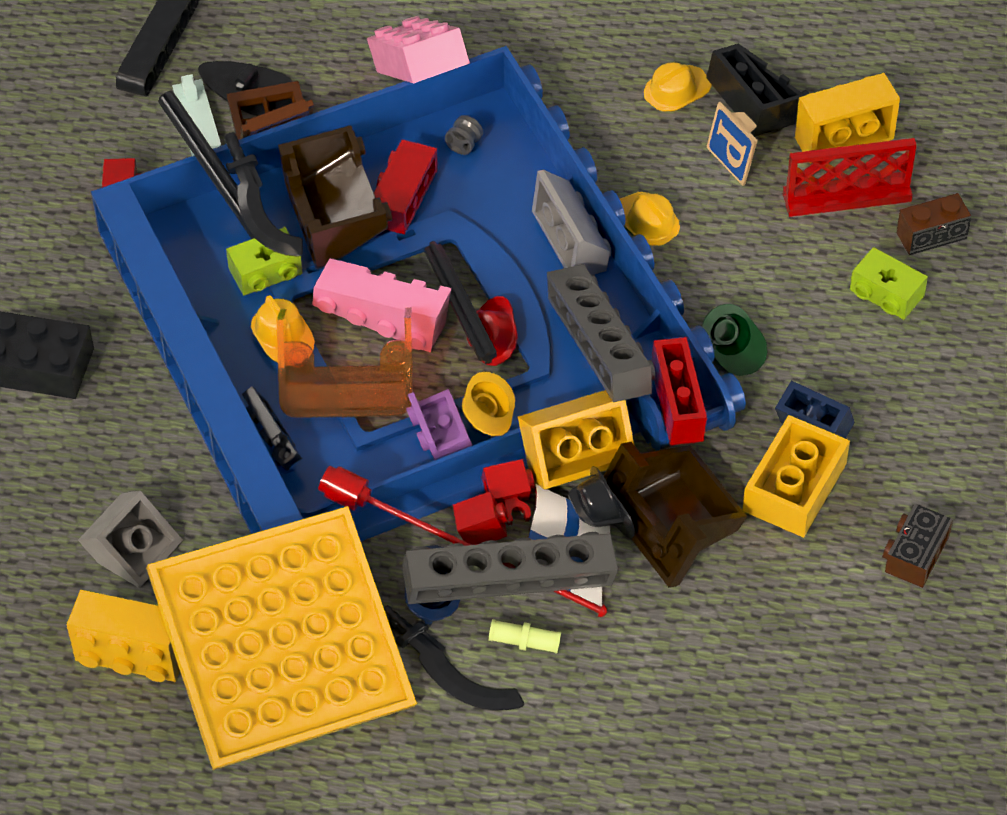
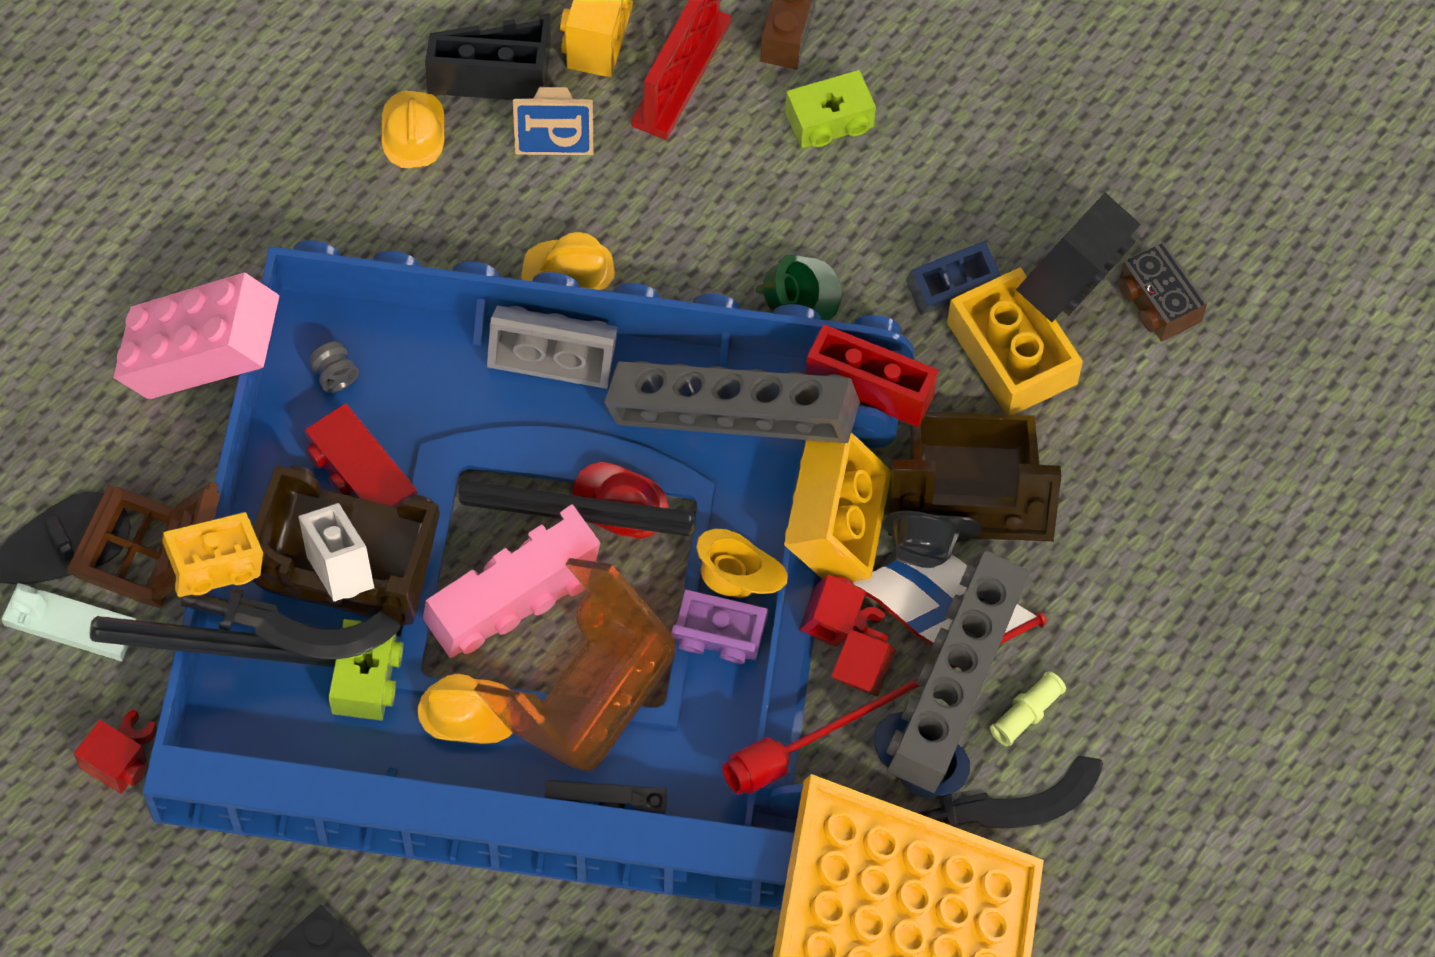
camera: 60 degrees left, 10 degrees up
(261, 126) = (213, 554): none -> yellow bracket
(317, 188) = (336, 552): none -> white brick
(883, 465) = (1080, 259): none -> black brick

